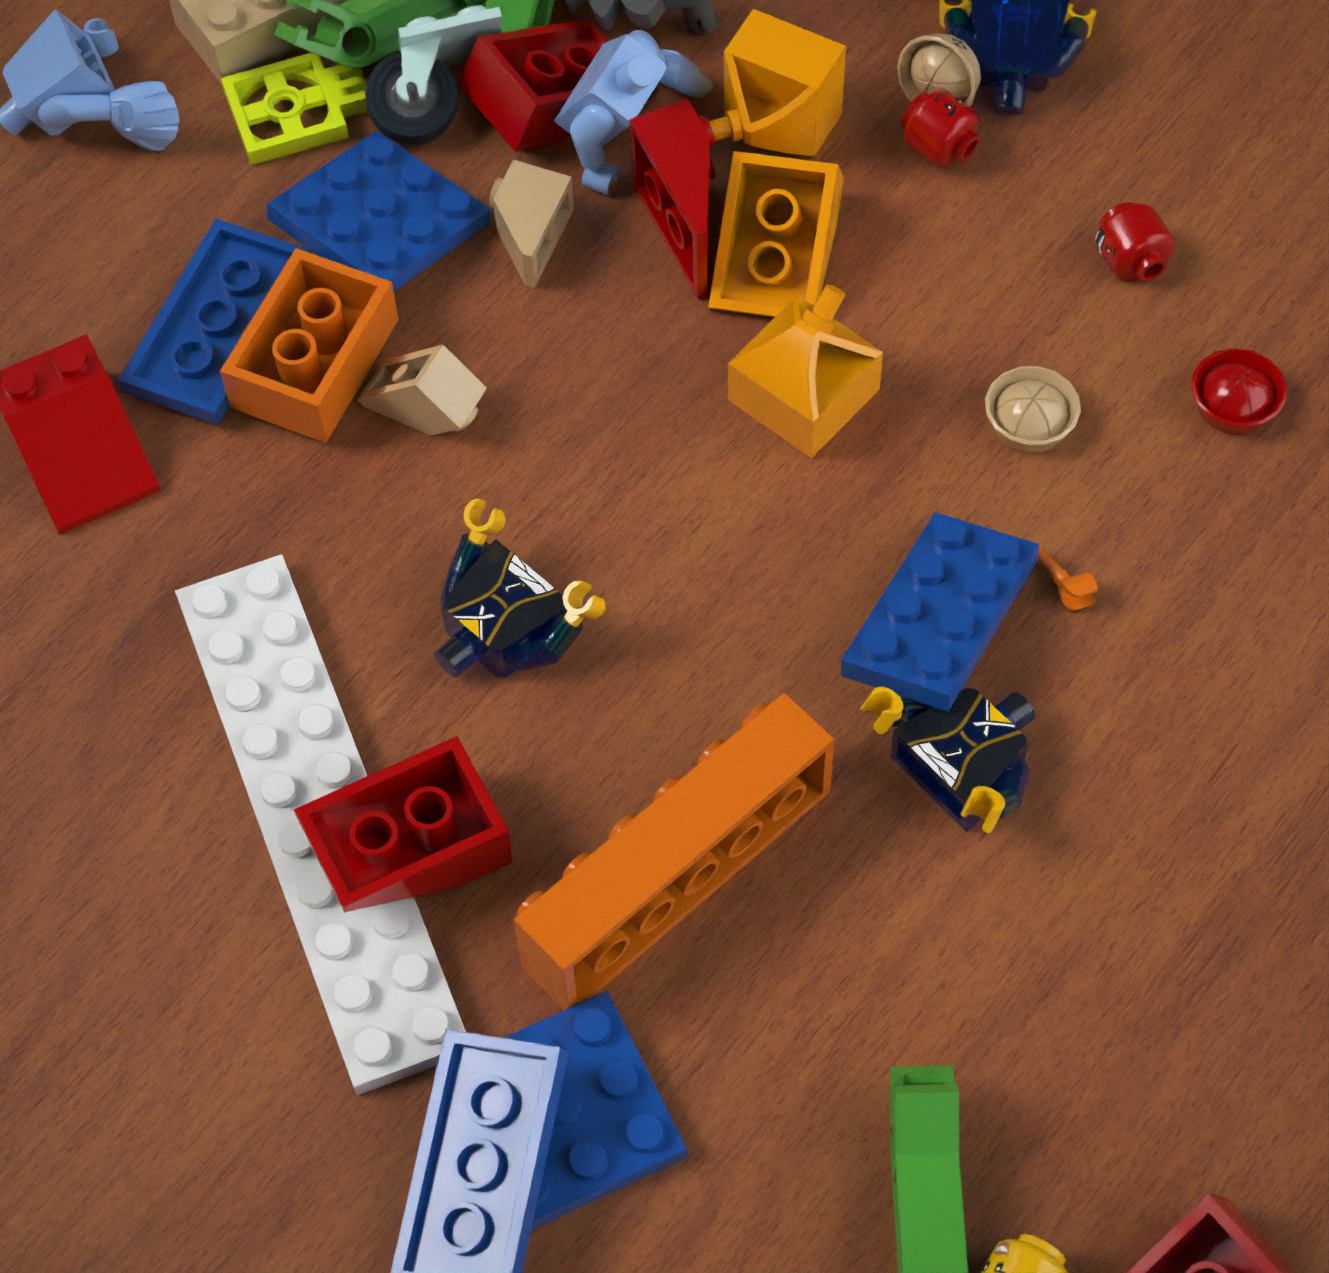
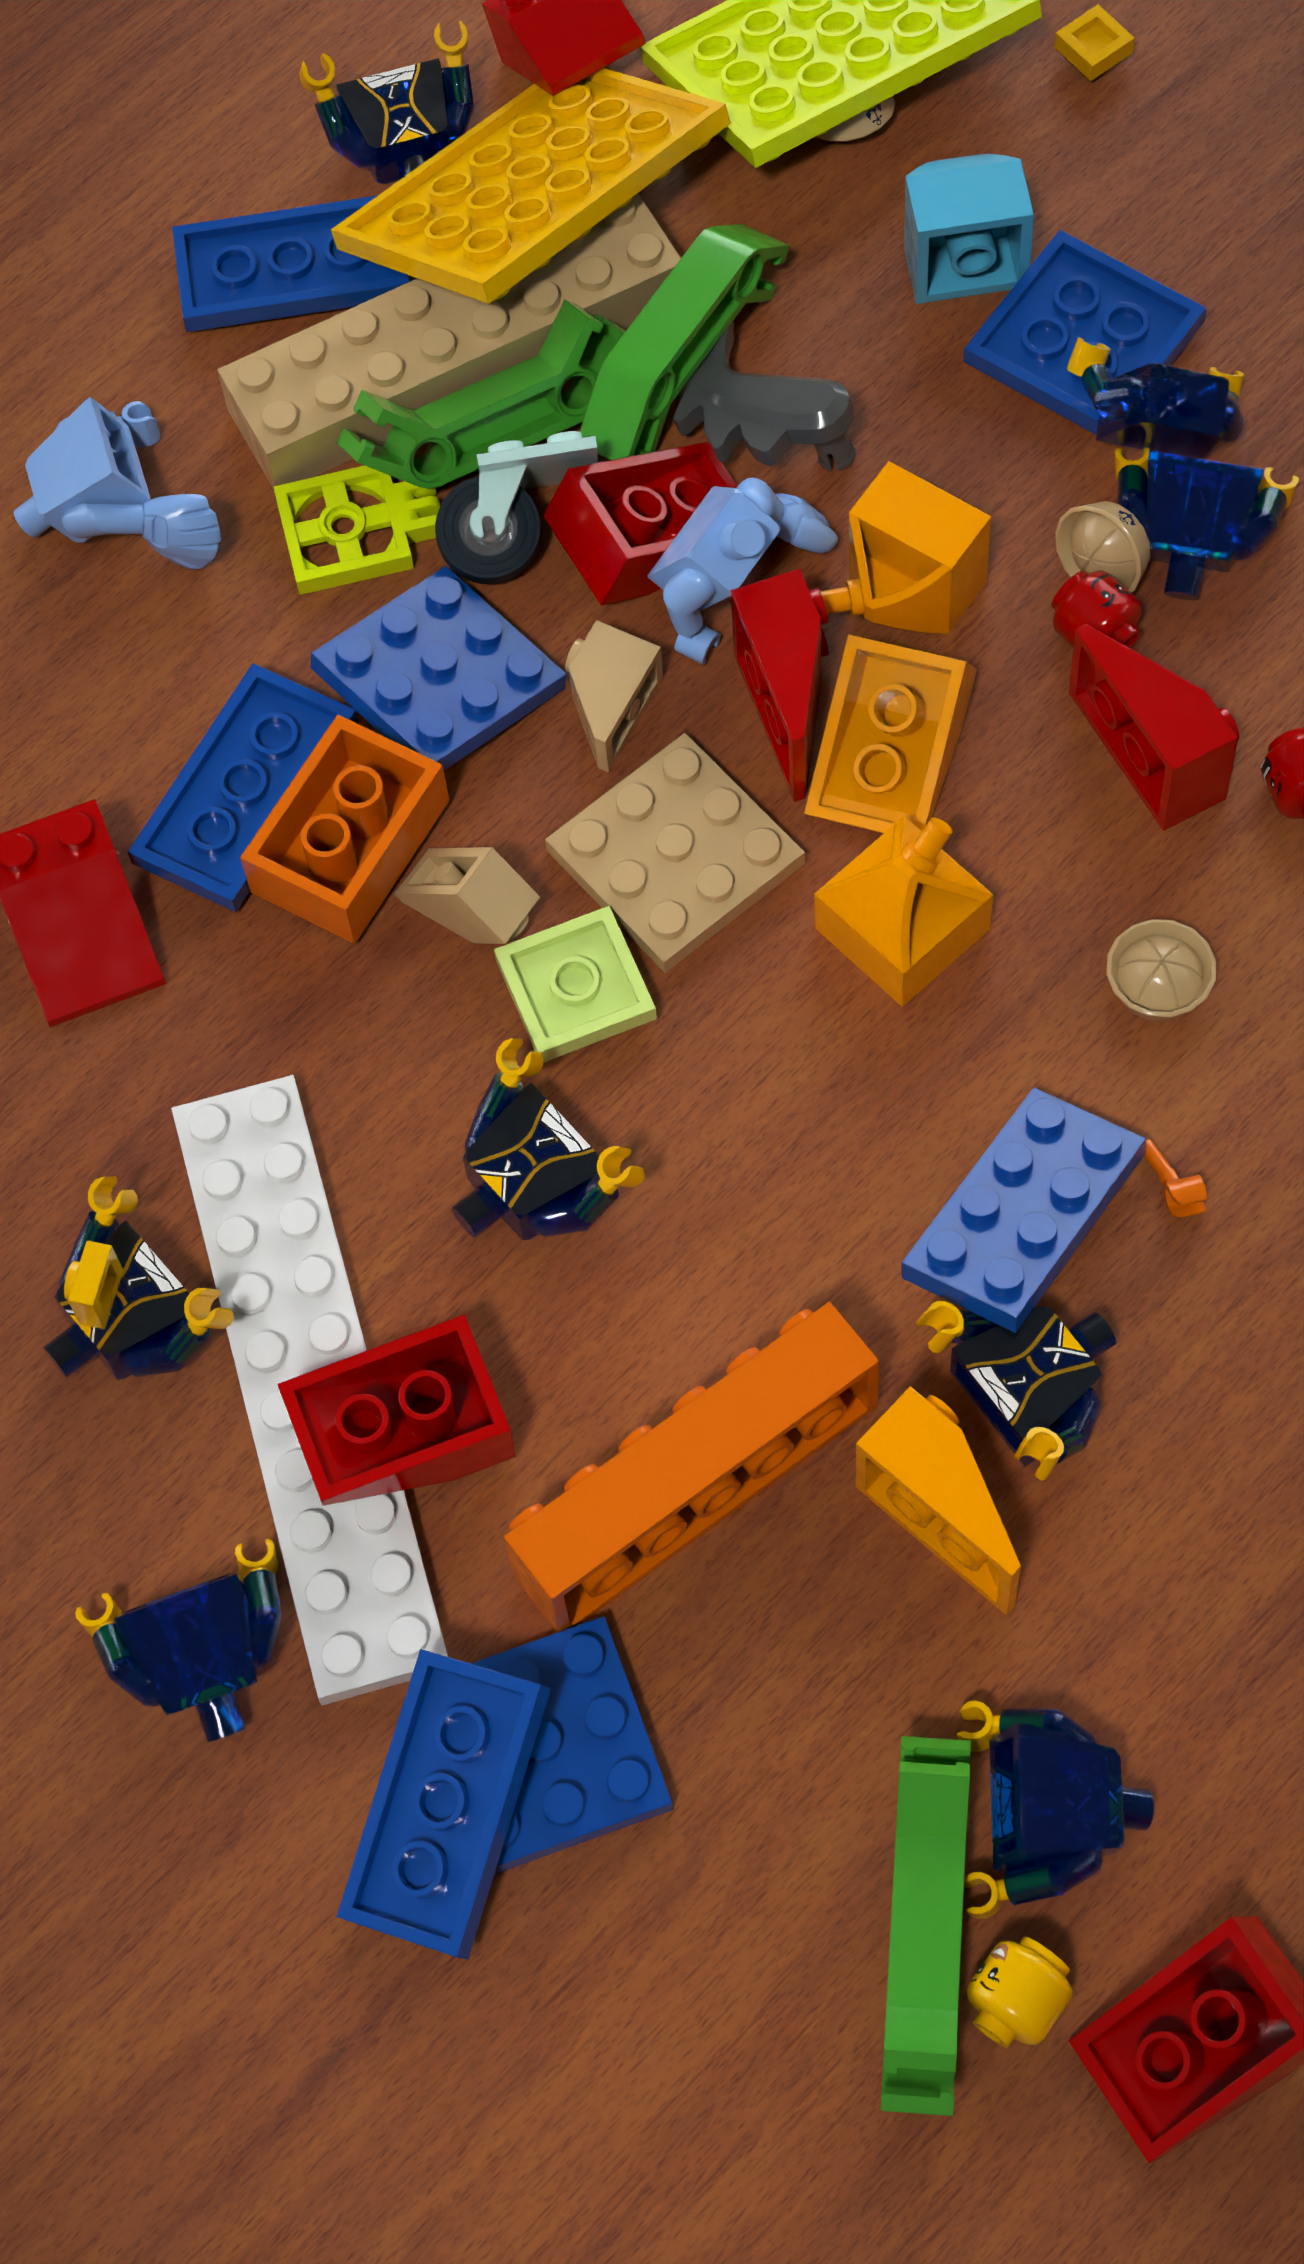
camera: 10 degrees right, 5 degrees up
(118, 738) = (93, 1284): none -> yellow plate
(148, 755) = (152, 1318): none -> torso
(236, 1047) = (195, 1643): none -> clear blue torso
(525, 458) = (575, 984): none -> yellowish green plate
(600, 346) = (675, 852): none -> tan plate
(892, 851) = (929, 1483): none -> light orange slope
(1002, 208) = (1154, 726): none -> red slope
(1030, 1115) = (1052, 1803): none -> clear blue torso

